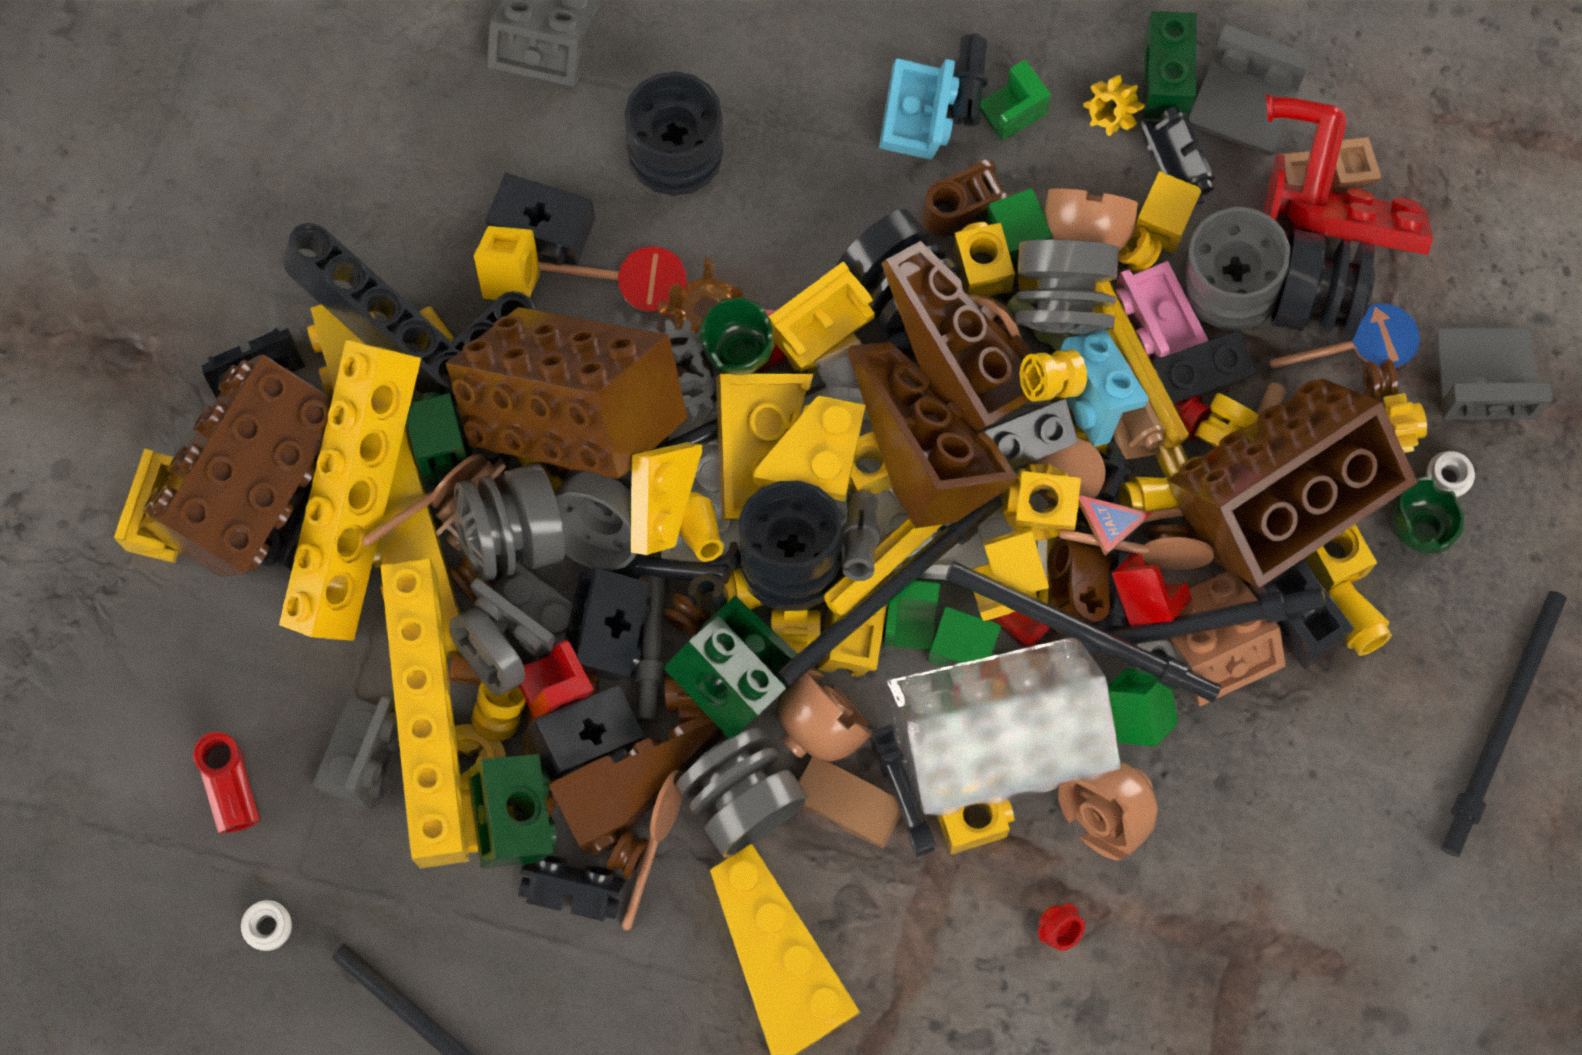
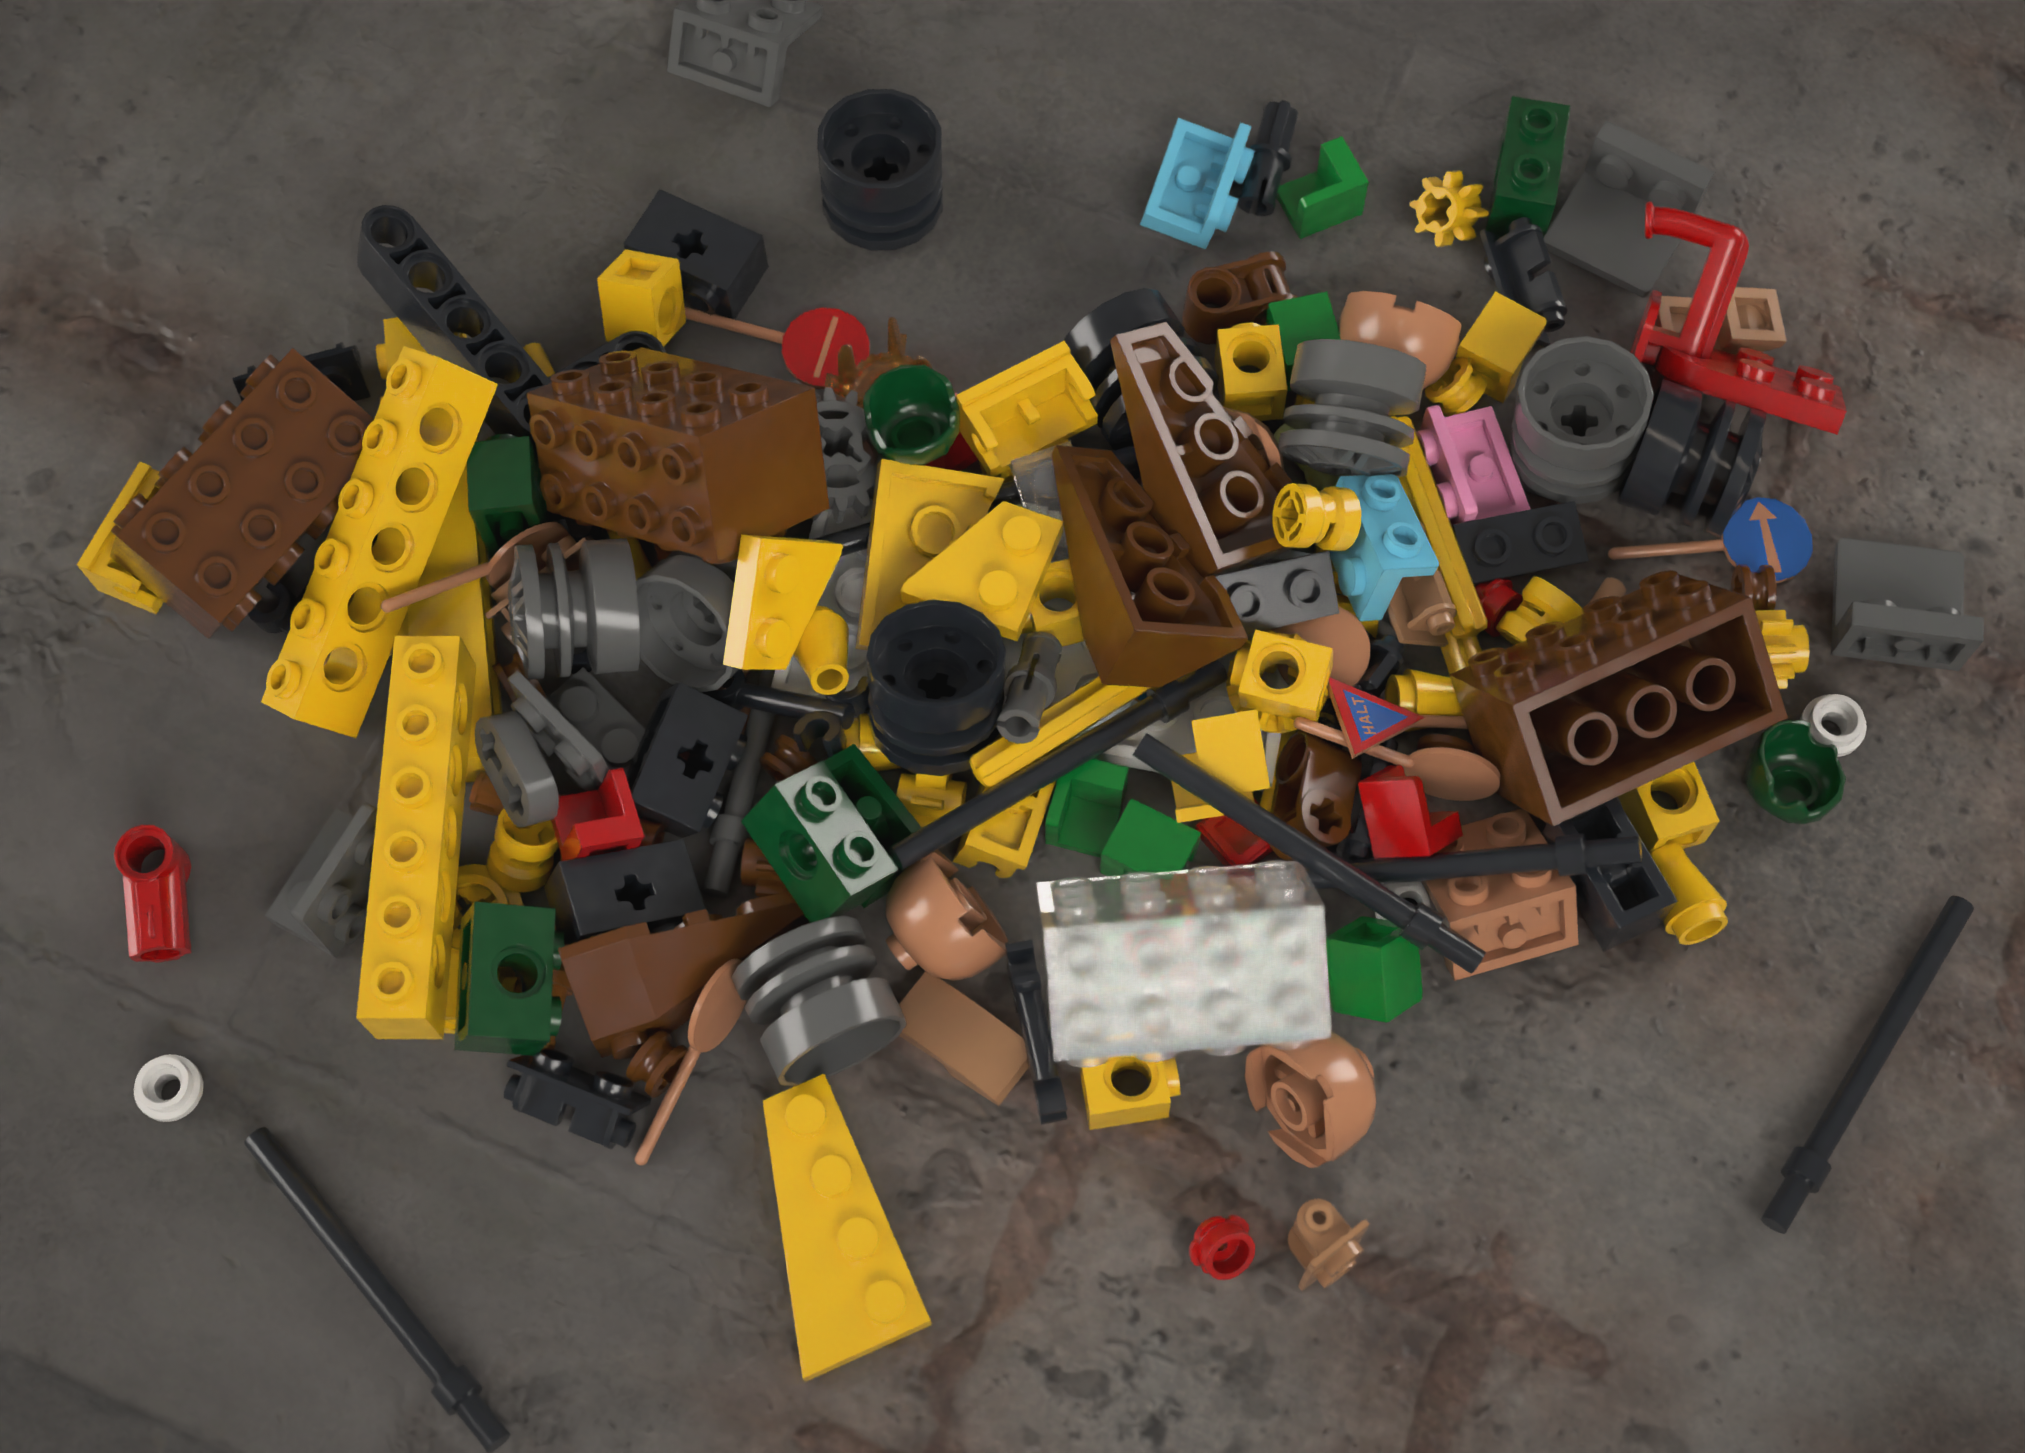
camera: 10 degrees right, 5 degrees down
(1134, 914) = (1324, 1243): none -> medium nougat hinge

